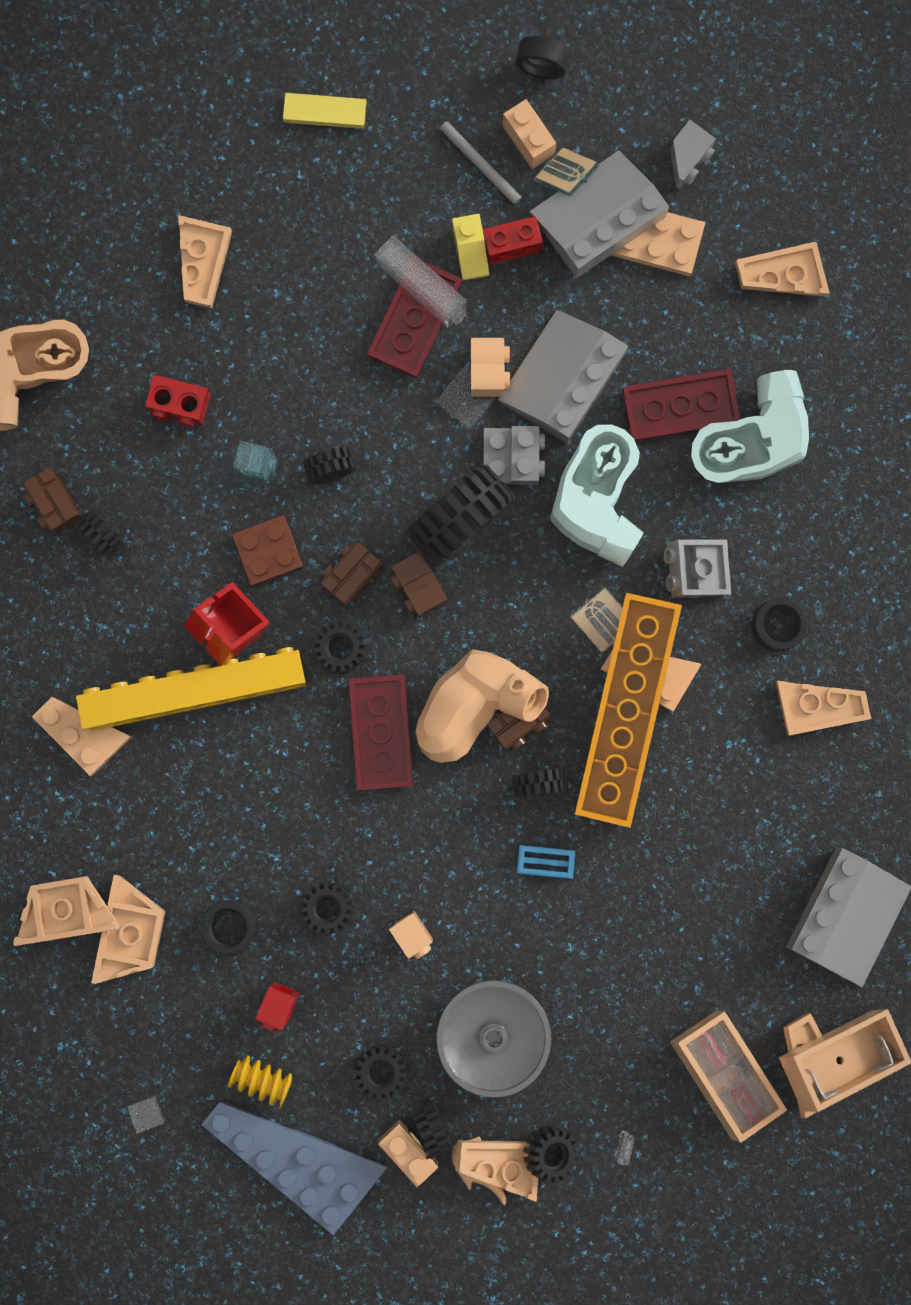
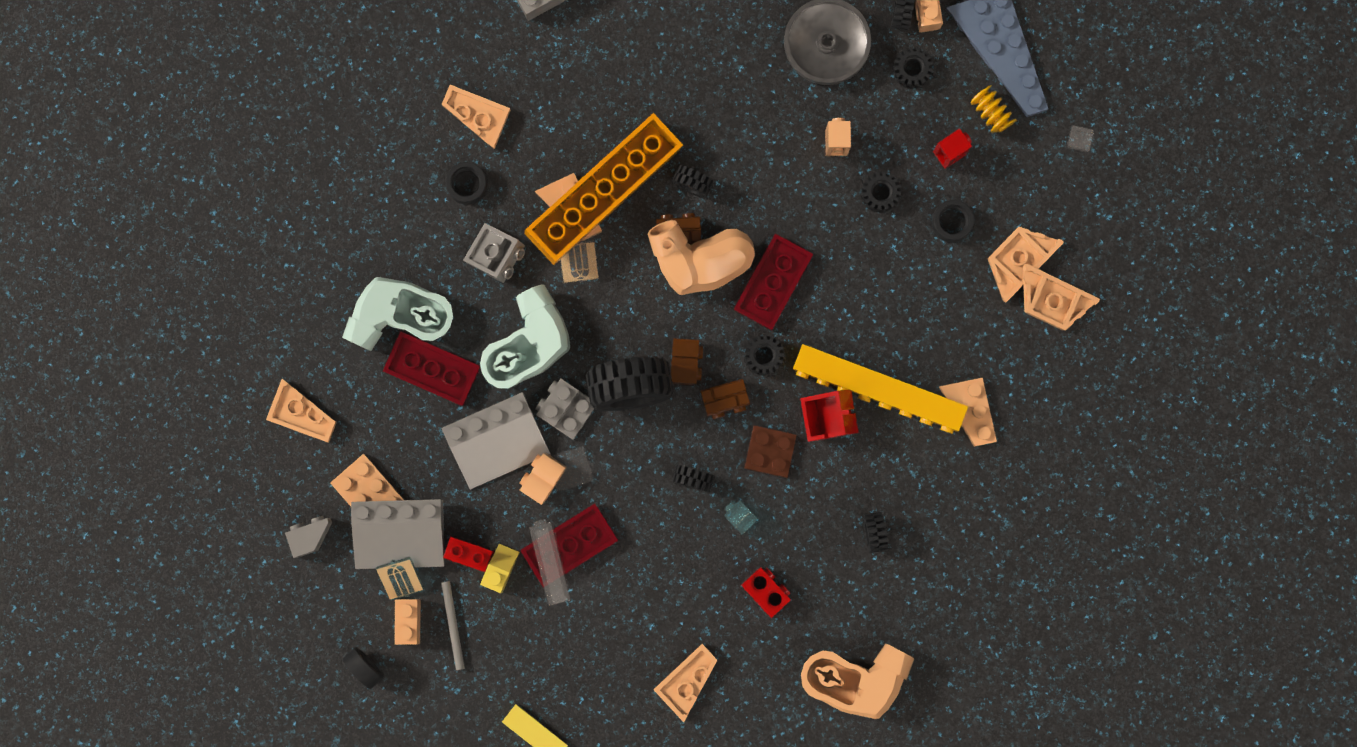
camera: 145 degrees left, 0 degrees up
(51, 500) = (893, 577): reddish brown brick -> none
(570, 864) = (734, 143): dark azure tile -> none

